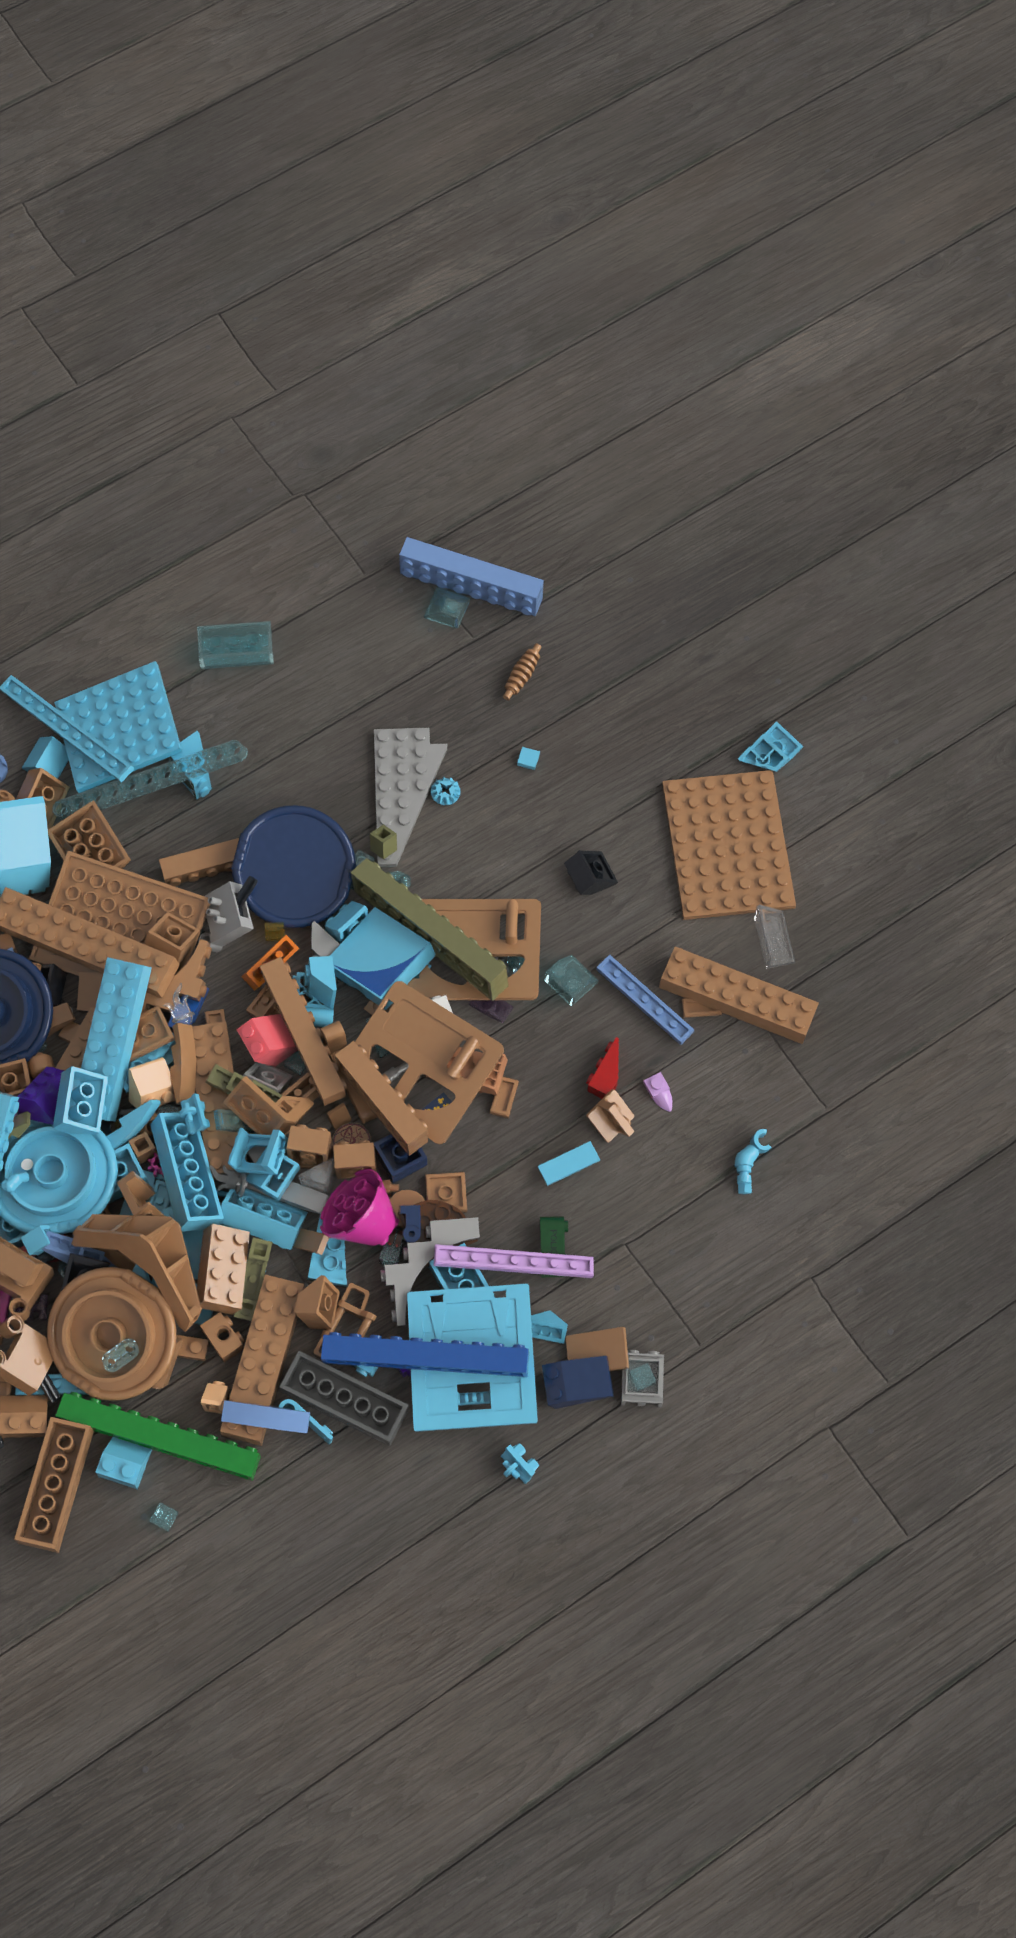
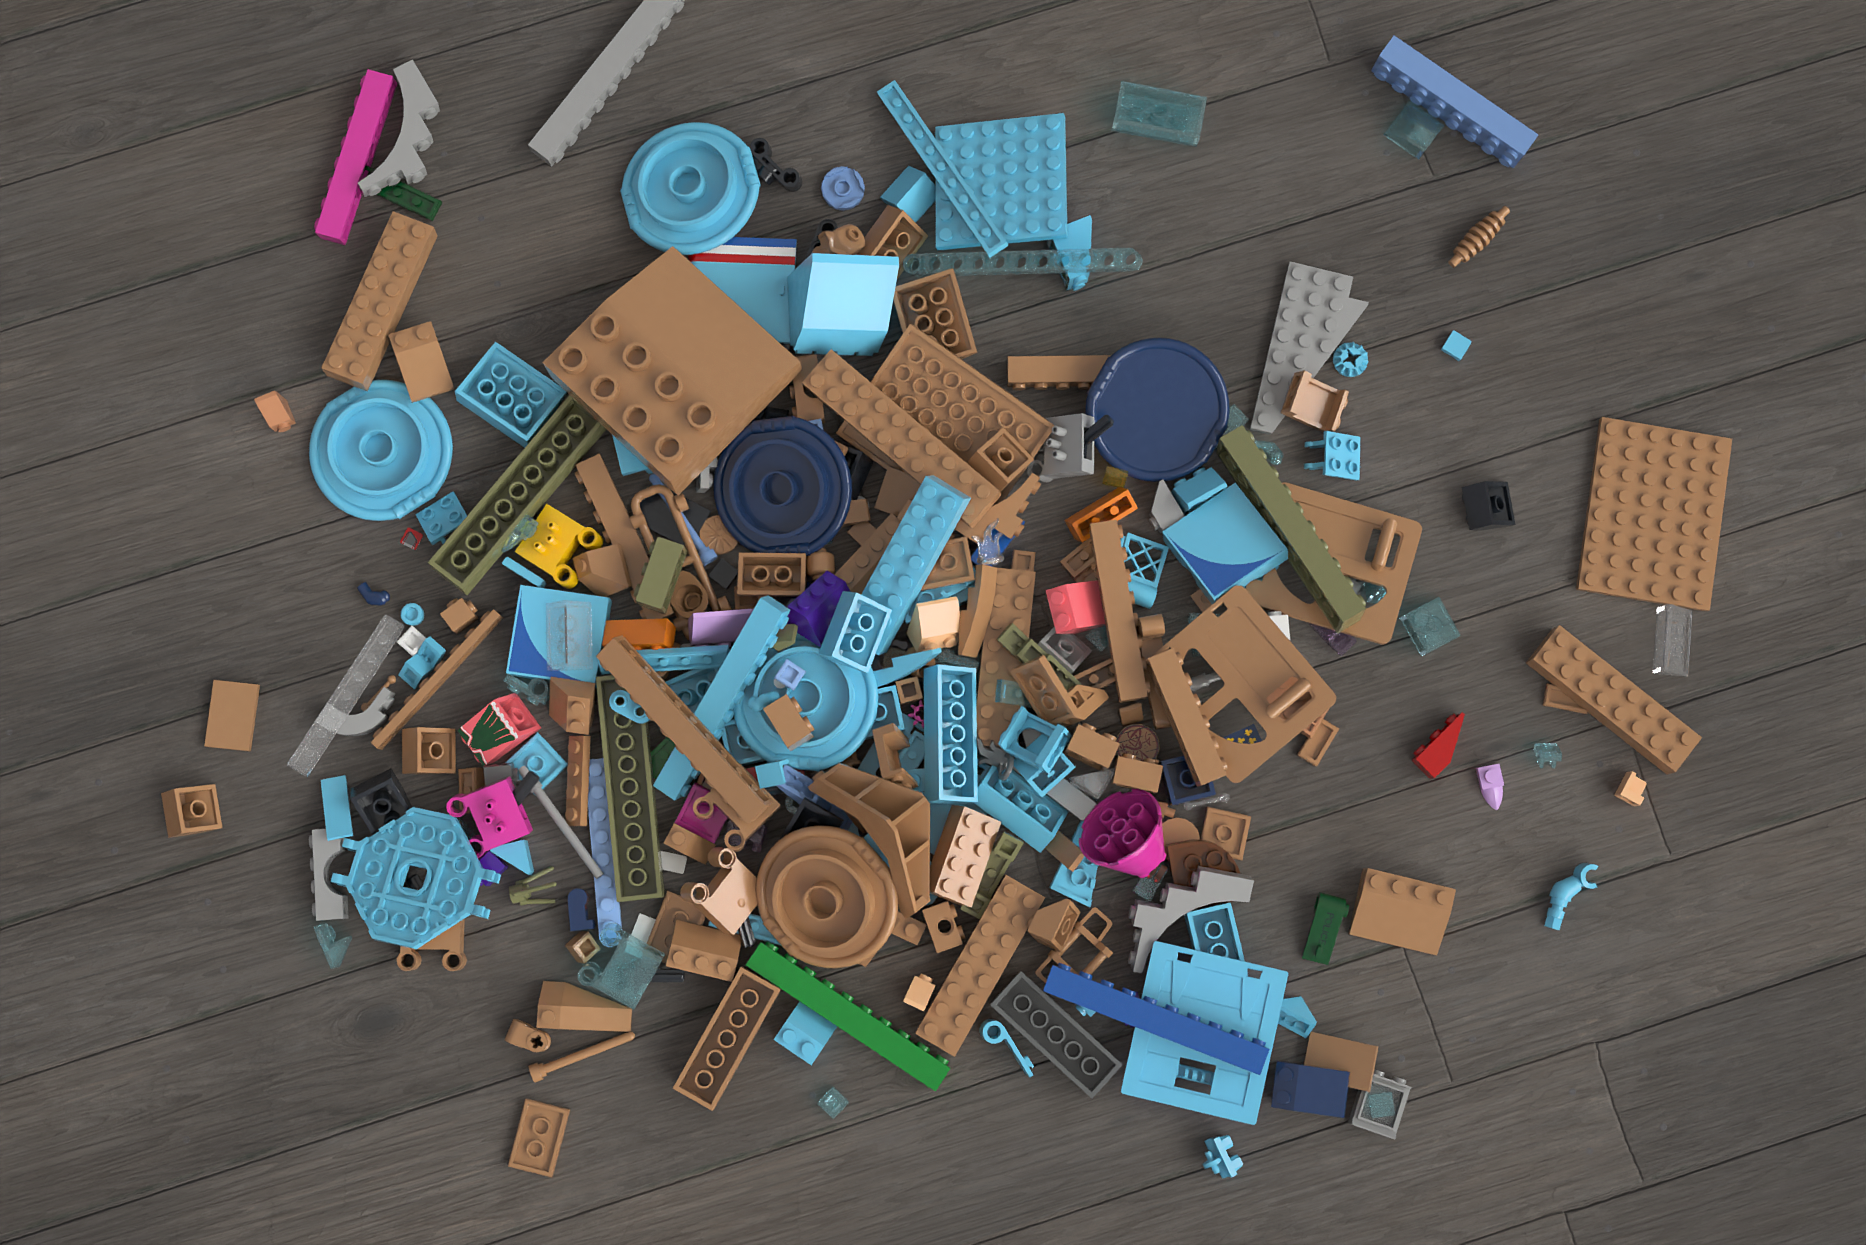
camera: 15 degrees right, 15 degrees up
(33, 1153) = (790, 674): none -> light blue tile
(40, 1188) = (788, 722): none -> medium nougat brick
(120, 1355) = (830, 928): clear light blue beam -> none
(193, 1113) = (974, 674): medium azure hips -> none
(265, 1416) = (968, 1036): medium blue slope -> none
(321, 980) = (1153, 555): medium azure slope -> none
(383, 841) = (1265, 407): olive brick -> none
(412, 1222) = (1180, 864): dark blue leg -> none
(424, 830) = (1314, 402): none -> panel
(438, 1164) = (1224, 798): none -> clear hinge
(457, 866) = (1341, 455): none -> medium azure plate
(513, 1261) = (1278, 937): lavender tile -> none
(568, 1163) = (1368, 840): medium azure piece -> none
(611, 1116) = (1431, 802): bracket -> none
(614, 1213) = (1401, 911): none -> medium nougat slope
(645, 999) = (1506, 674): medium blue plate -> none
(697, 1052) = (1547, 753): none -> clear light blue tile
(772, 749) = (1739, 412): medium azure slope -> none
(776, 1063) = (1631, 789): none -> light nougat panel

